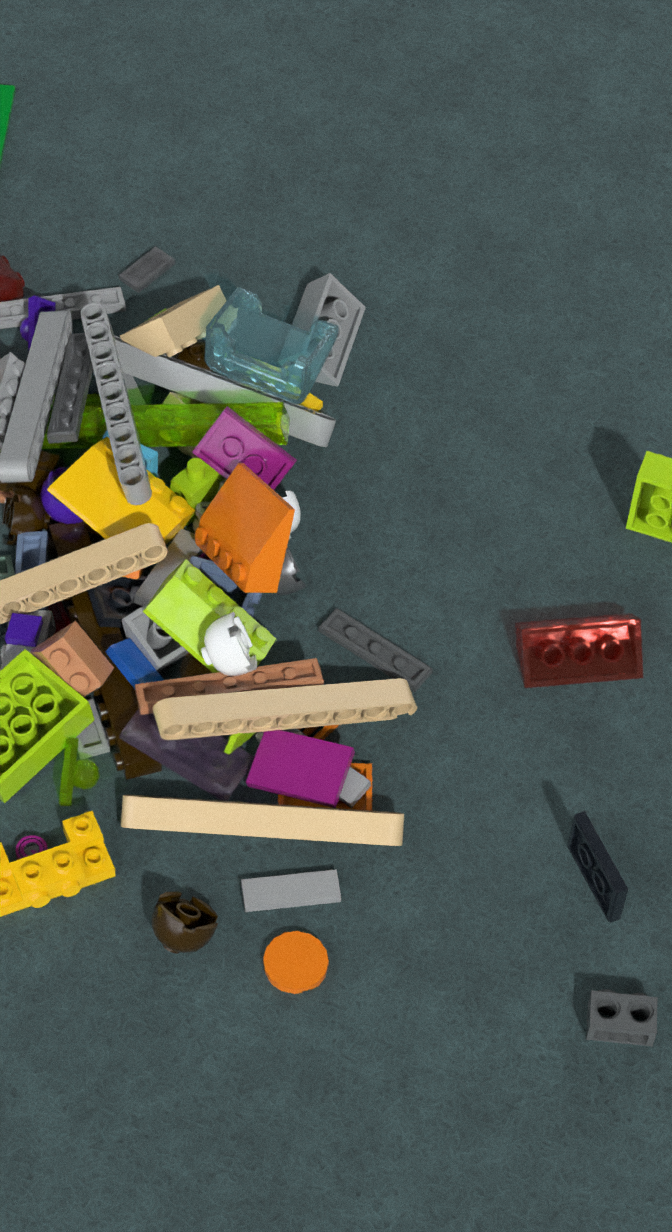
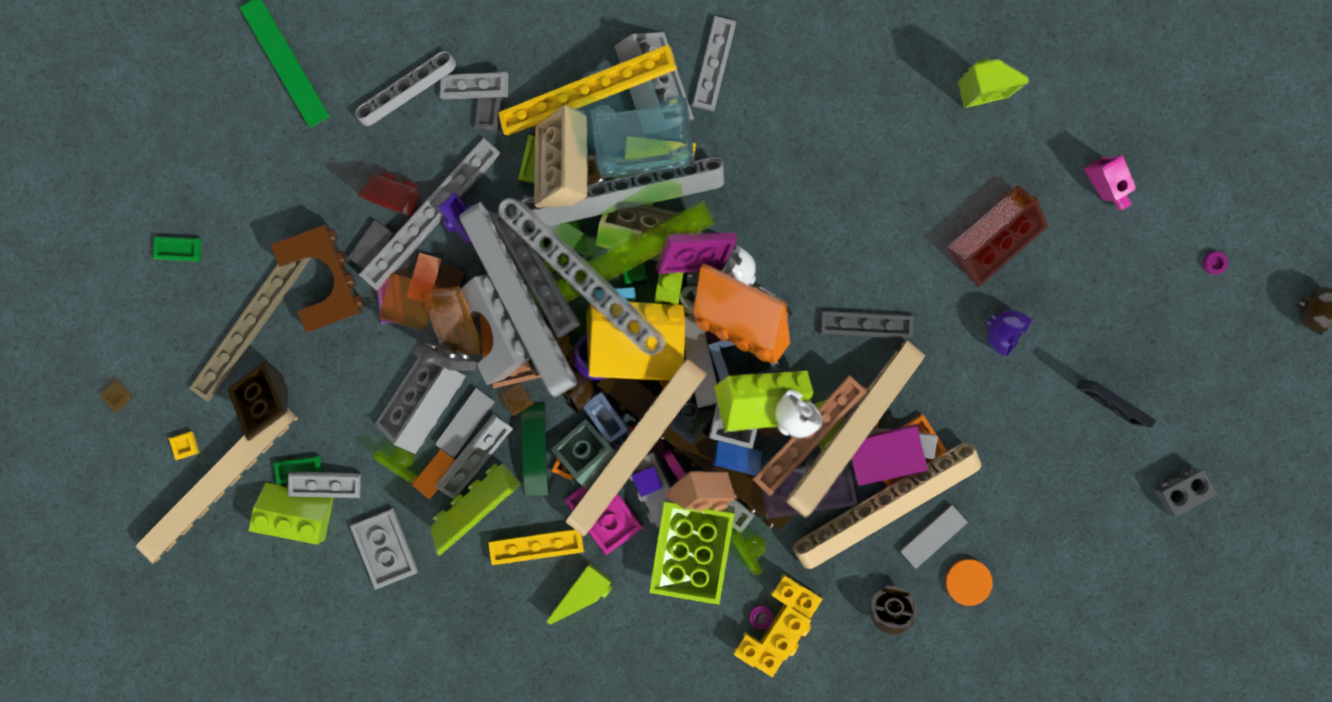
camera: 30 degrees left, 35 degrees up
(82, 213) = (415, 84): none -> light grey beam
(147, 244) = (474, 85): none -> light grey tile
(170, 466) = (635, 274): none -> green tile
(269, 292) = (589, 89): none -> yellow plate
(394, 355) = (714, 63): none -> light grey tile
(528, 731) = (1006, 330): none -> dark purple cylinder

